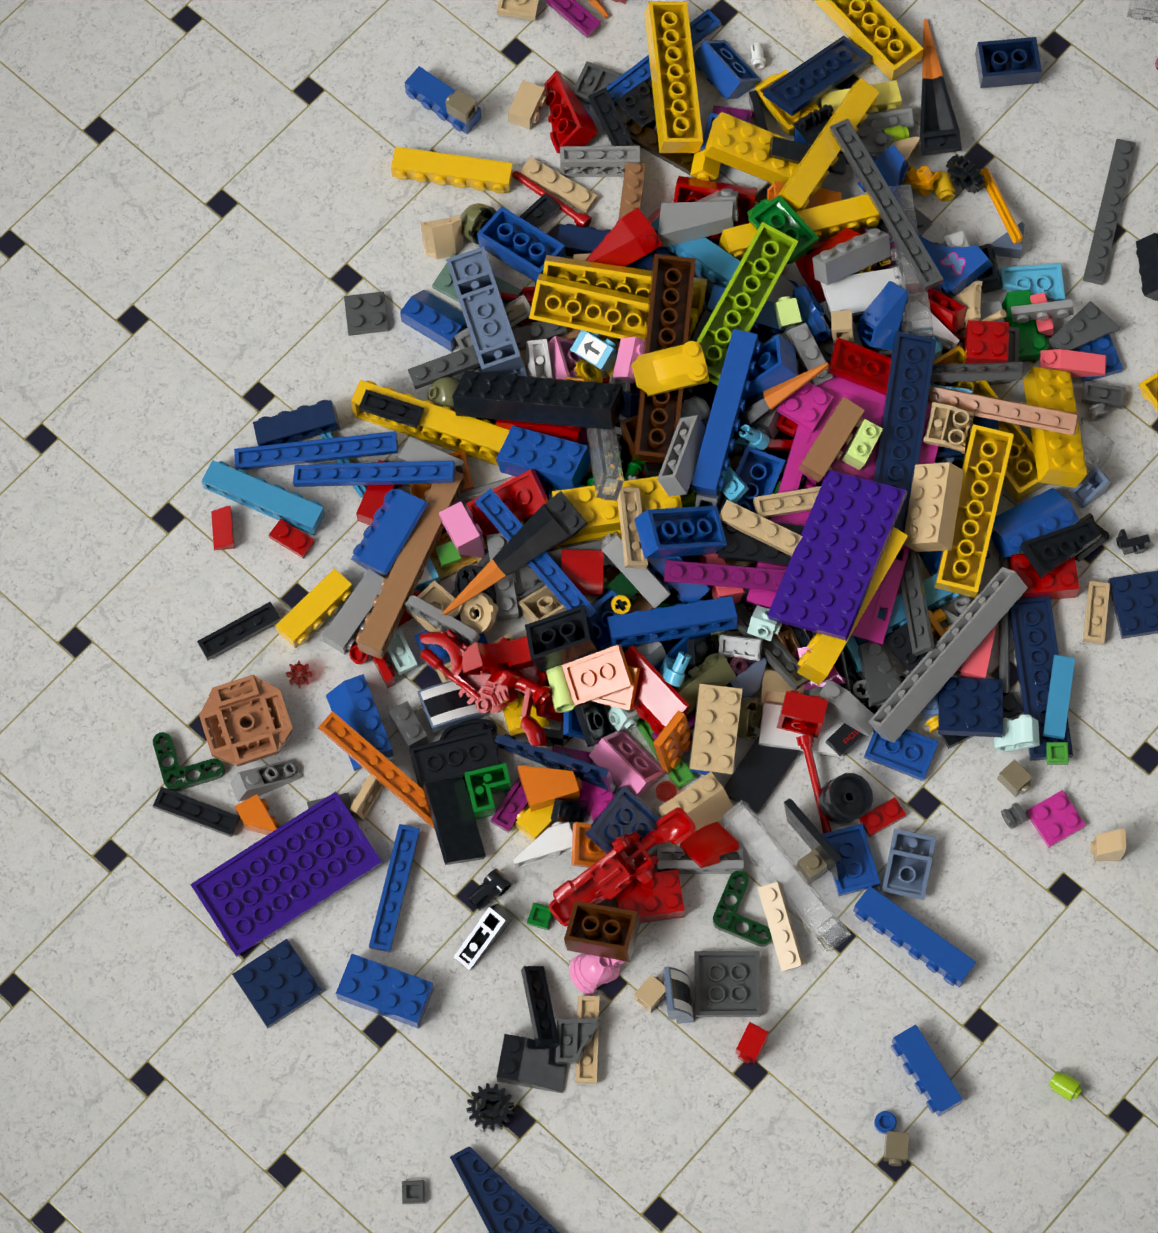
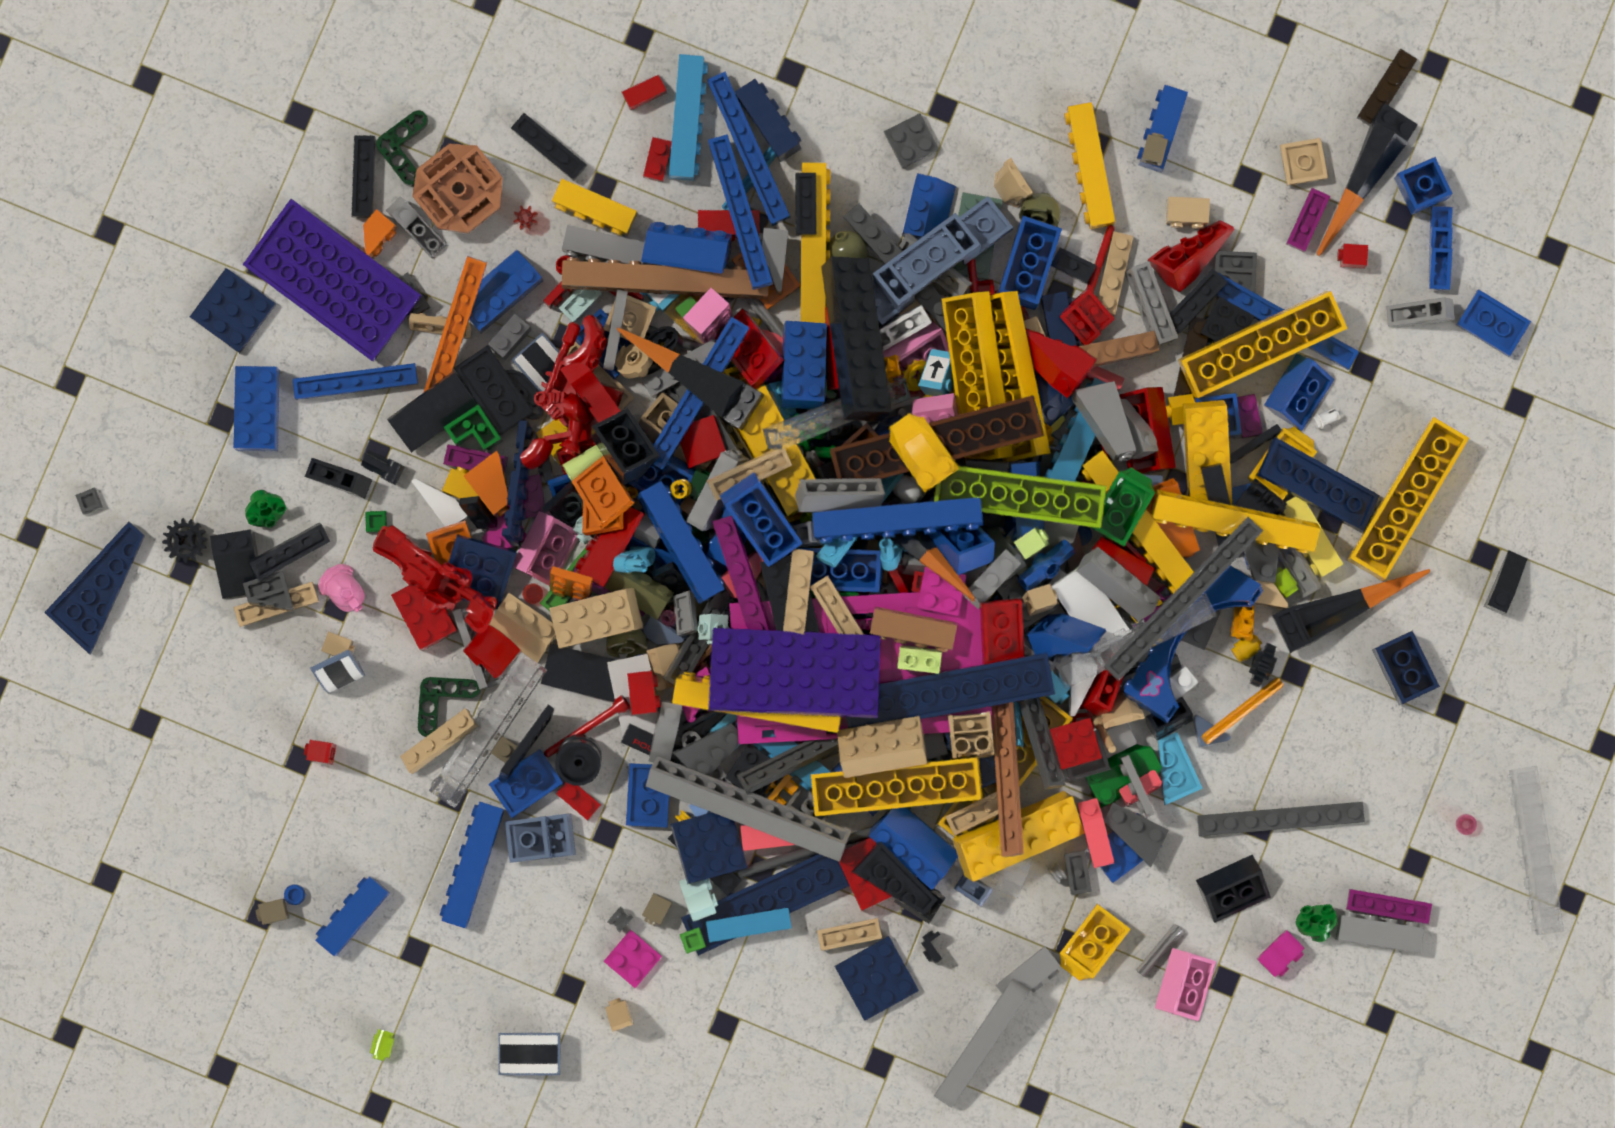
camera: 70 degrees right, 15 degrees up
(488, 1015) = (264, 509): none -> green plate
(590, 214) = (1086, 317): none -> red slope
(602, 931) = (369, 582): reddish brown brick -> none
(727, 983) = (370, 711): dark grey plate -> none
(1021, 454) = (973, 814): none -> tan plate
(1119, 945) = (530, 1053): none -> slope

